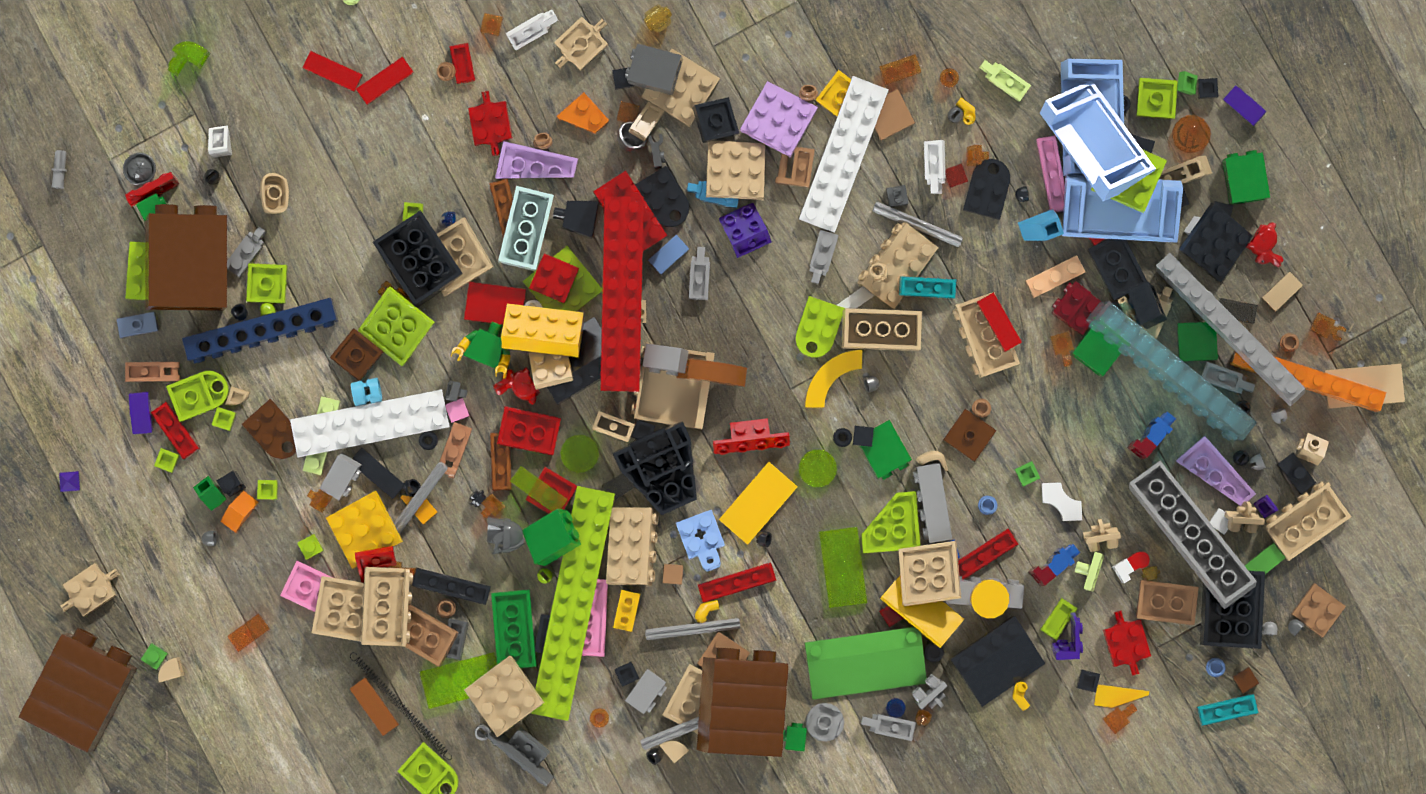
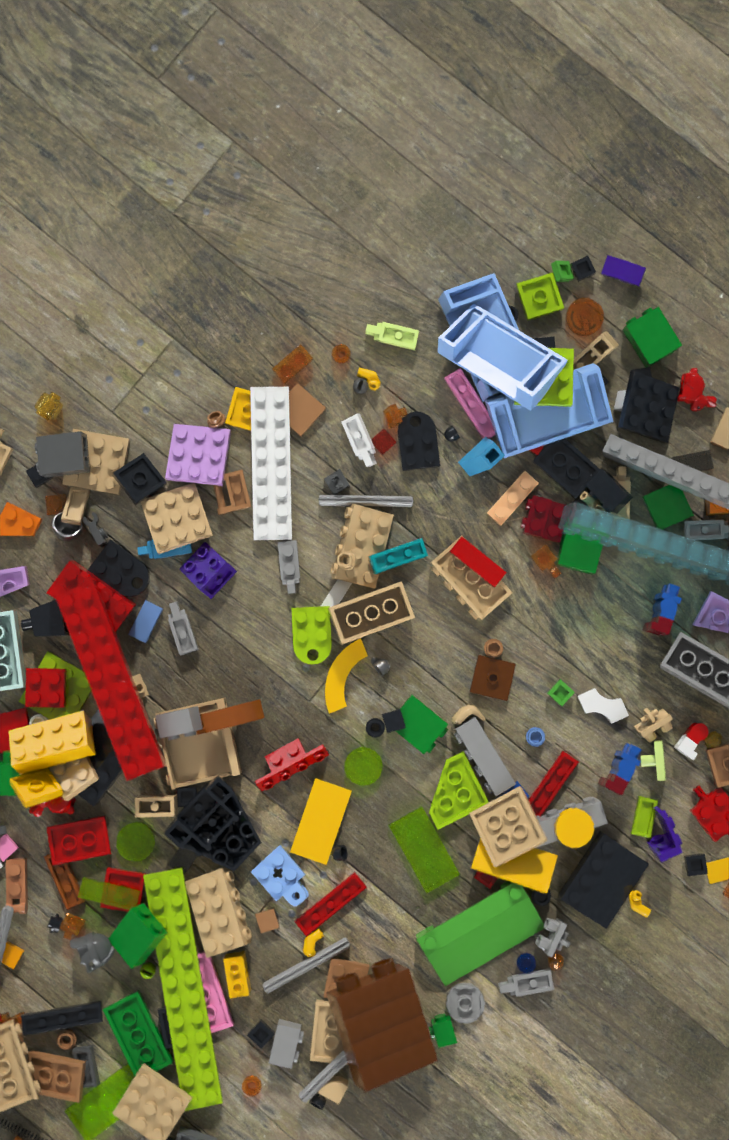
camera: 15 degrees left, 0 degrees up
(513, 364) = (36, 787): none -> yellow plate

